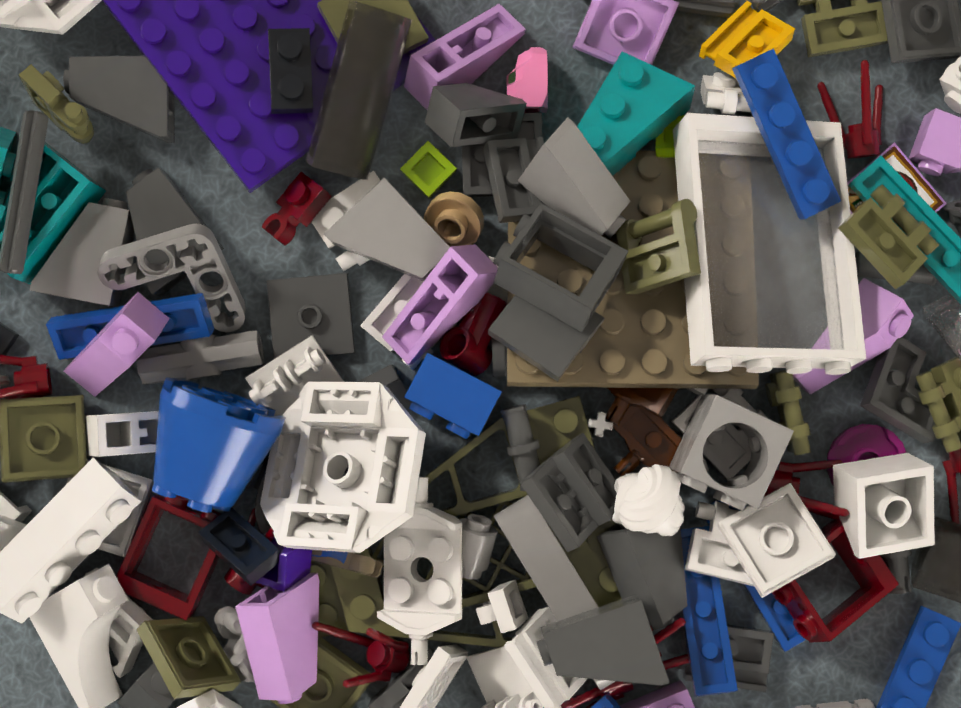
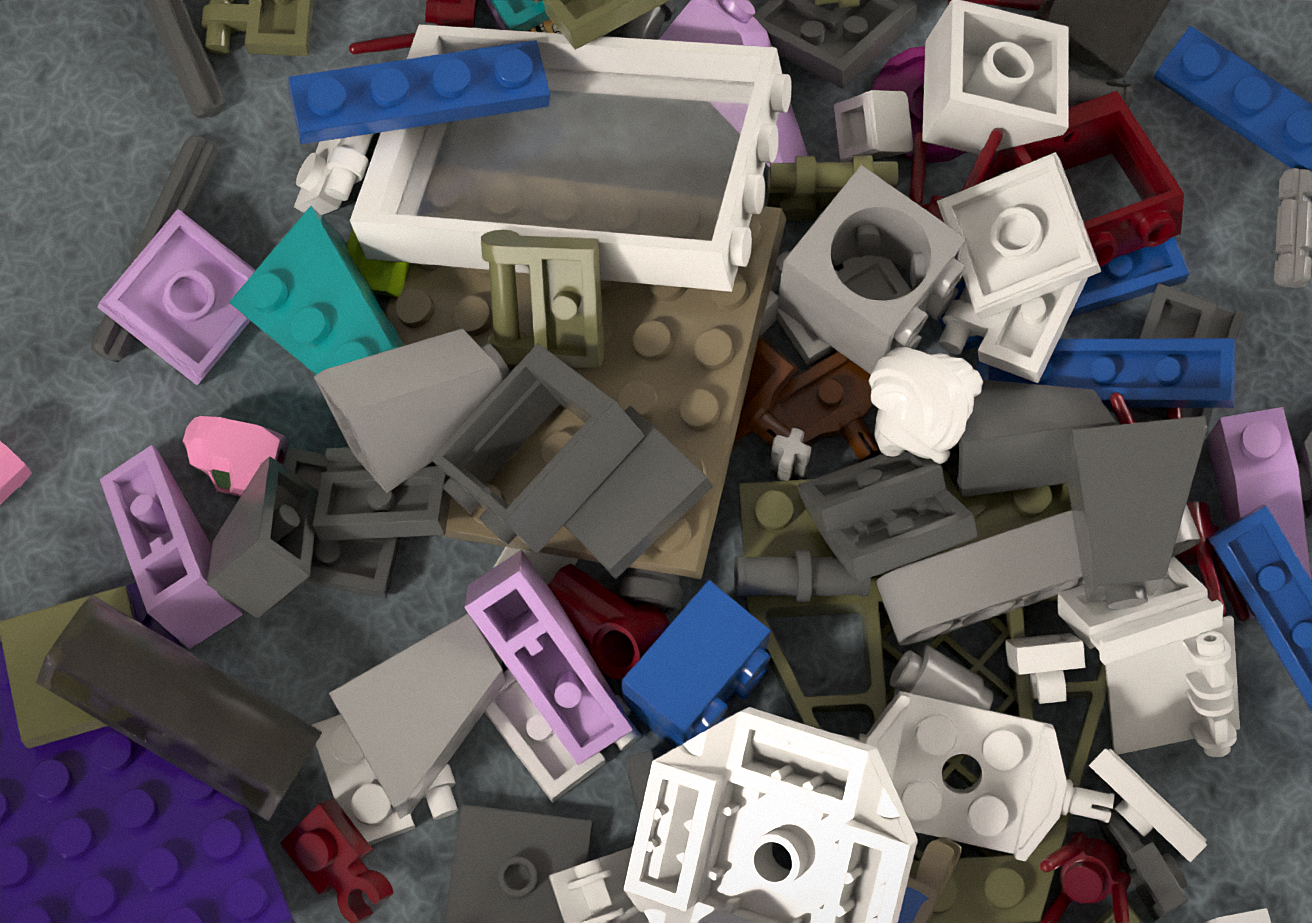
camera: 80 degrees left, 15 degrees down
(290, 70) = (118, 808): black plate -> none
(428, 169) = (330, 640): lime plate -> none
(455, 218) = (416, 606): tan plate -> none
(745, 37) = (260, 129): yellow plate -> none
(840, 430) = (873, 125): none -> white slope

